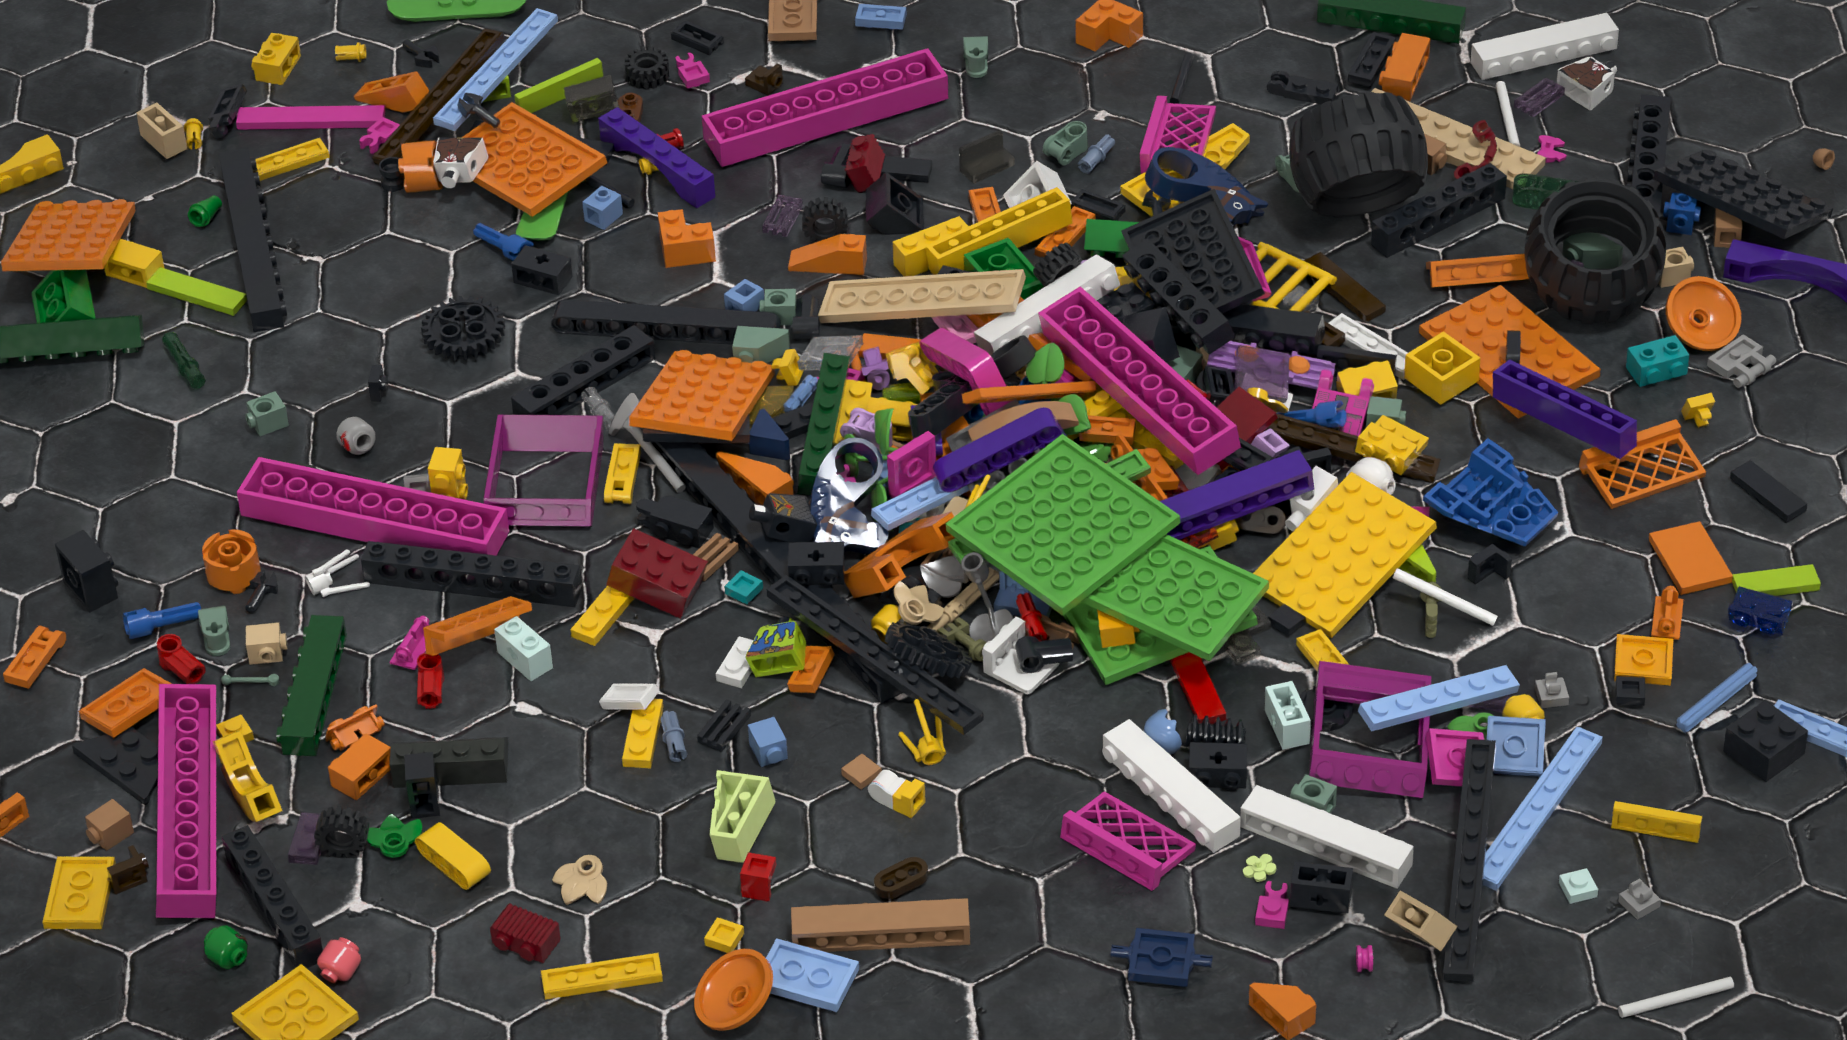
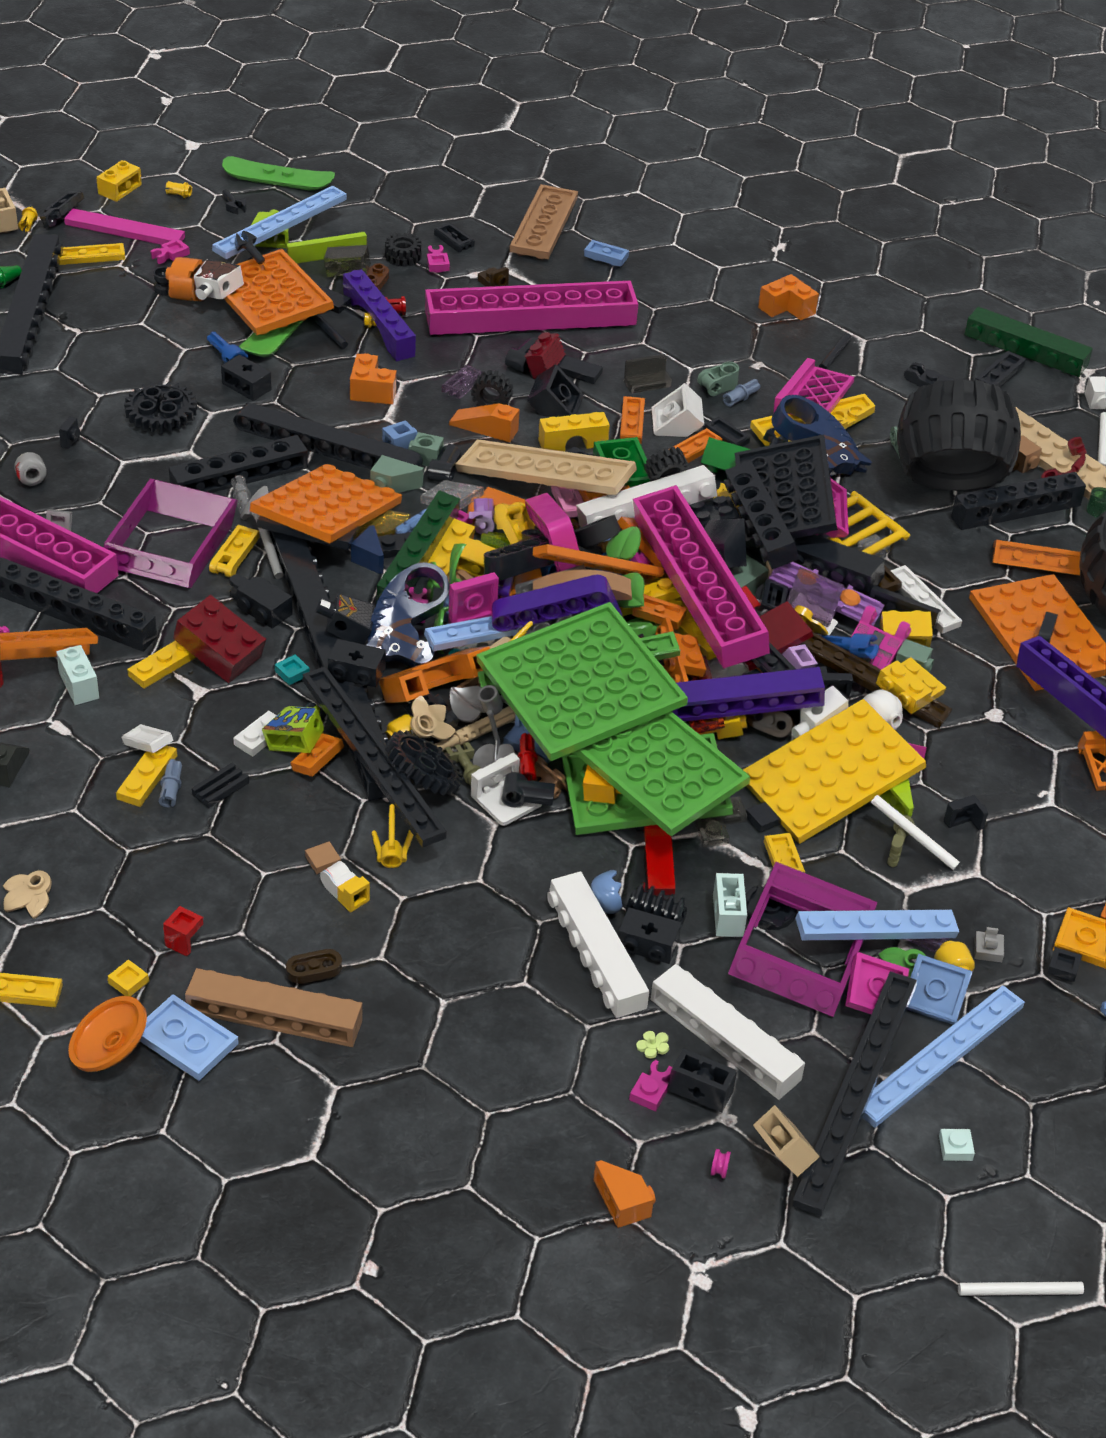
camera: 10 degrees right, 0 degrees up
(397, 93) = (198, 224): orange slope -> none
(441, 93) = (261, 211): dark brown tile -> none
(448, 473) = (83, 515): yellow brick -> none
(602, 207) = (318, 342): medium blue brick -> none
(711, 549) = (277, 636): medium nougat tile -> none
(739, 813) = (192, 868): yellowish green wedge -> none
(755, 476) = (343, 579): orange slope -> none
(767, 741) = (249, 809): medium blue brick -> none
(788, 367) = (411, 499): yellow tile -> none
(862, 426) = (464, 567): lavender piece -> none
(976, 56) = (672, 297): sand green piece -> none
(1019, 223) = (652, 430): yellow brick -> none
(1118, 851) = (521, 990): dark pink fence -> none
(1161, 957) = (525, 1109): dark blue plate -> none
(1315, 793) = (730, 987): sand green brick -> none
(1348, 290) = (917, 548): dark brown tile -> none
(1405, 65) = (1028, 381): orange brick -> none
(1442, 367) = (978, 630): yellow brick -> none
(1494, 497) = (989, 753): blue wedge -> none
(1639, 899) = (1013, 1175): light grey tile -> none
(1656, 822) = (1052, 1100): yellow tile -> none

